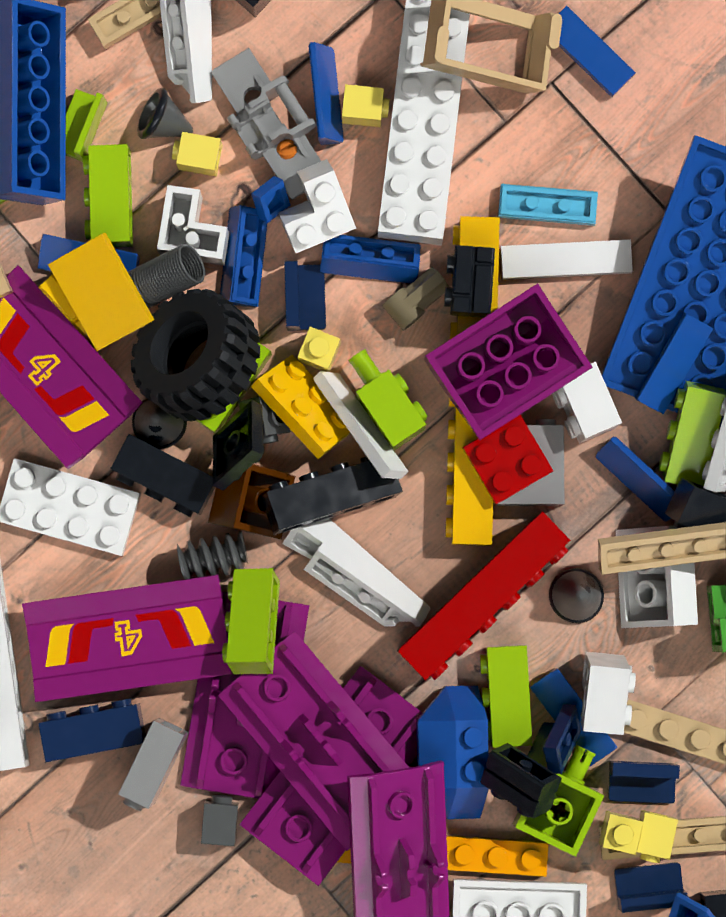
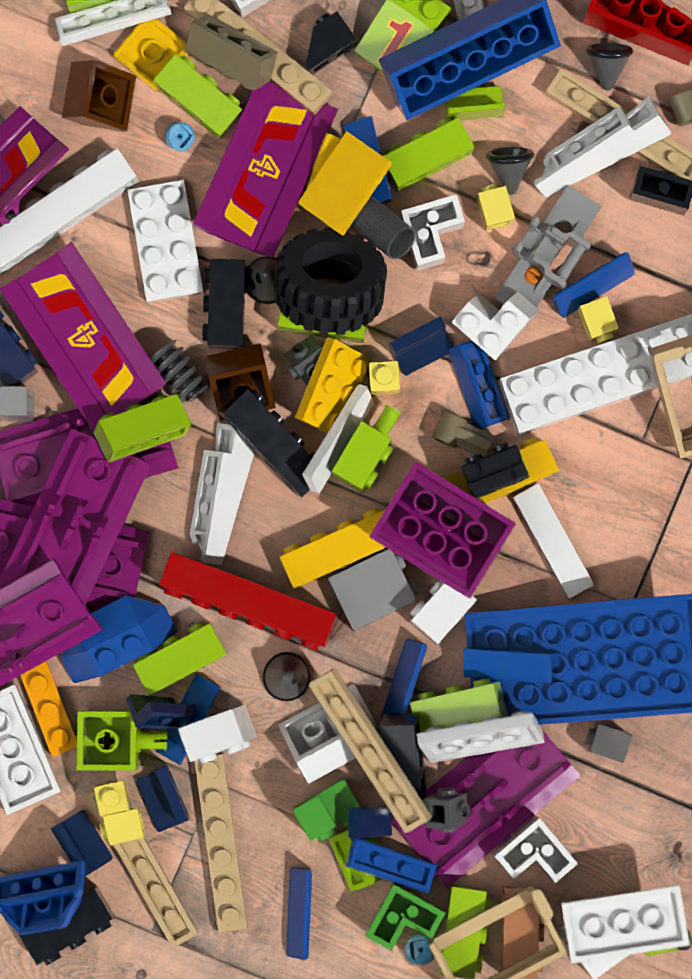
camera: 65 degrees right, 0 degrees up
(238, 445) = (274, 348): black plate -> none
(244, 257) = (431, 283): blue slope -> none
(270, 199) = (486, 282): blue plate -> none
(508, 460) = (366, 568): red plate -> none
(520, 781) = (115, 697): black brick -> none
(548, 204) = (590, 505): medium azure tile -> none

